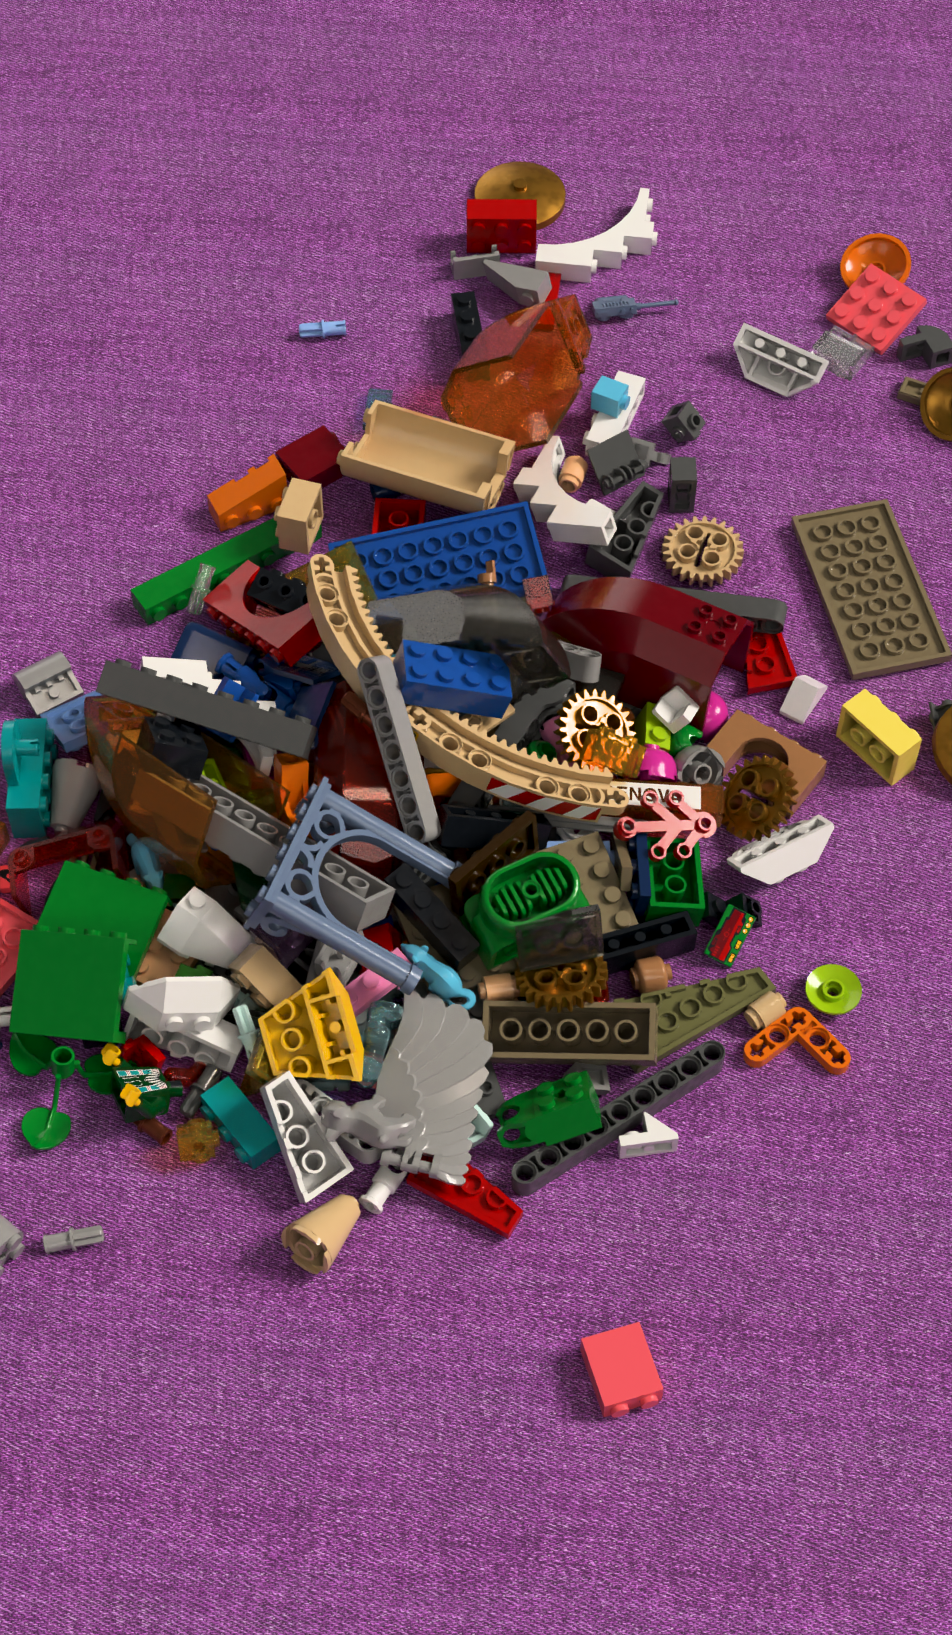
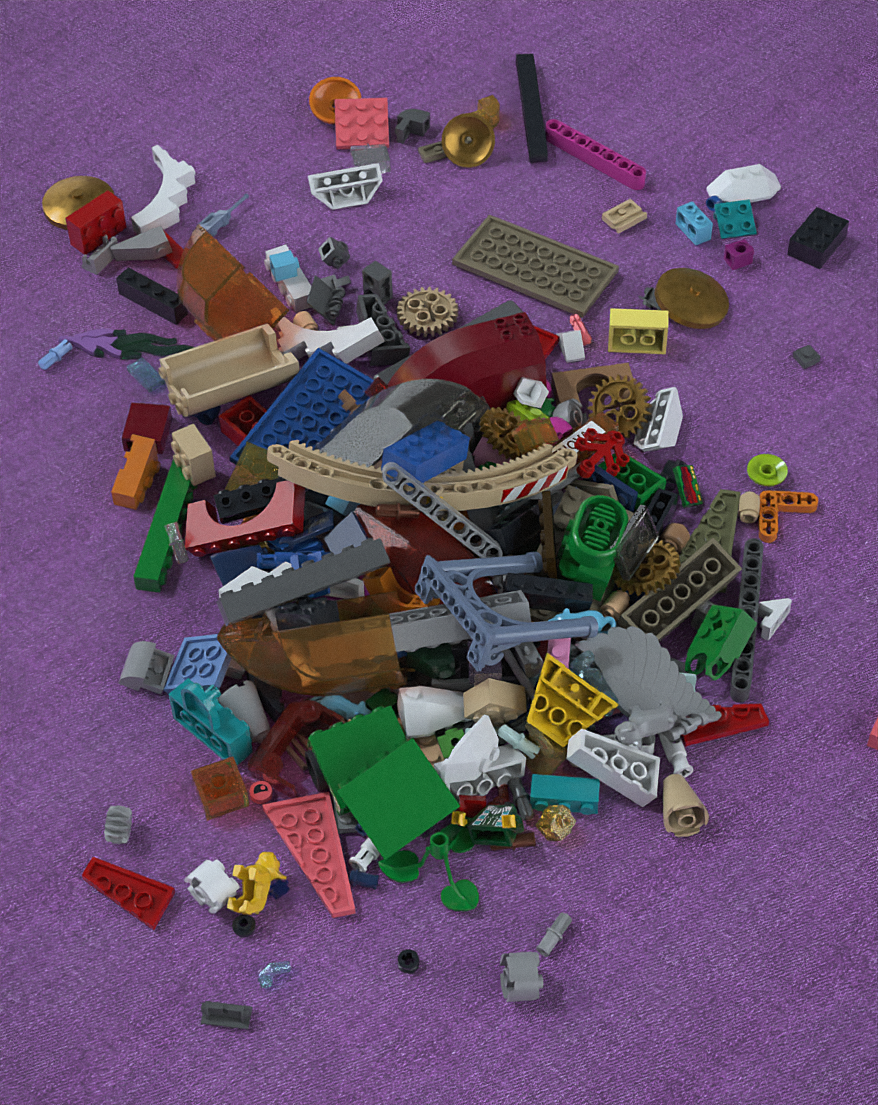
camera: 45 degrees left, 5 degrees down
(388, 363) = (123, 346): none -> piece
(833, 690) = (577, 324): none -> coral axle

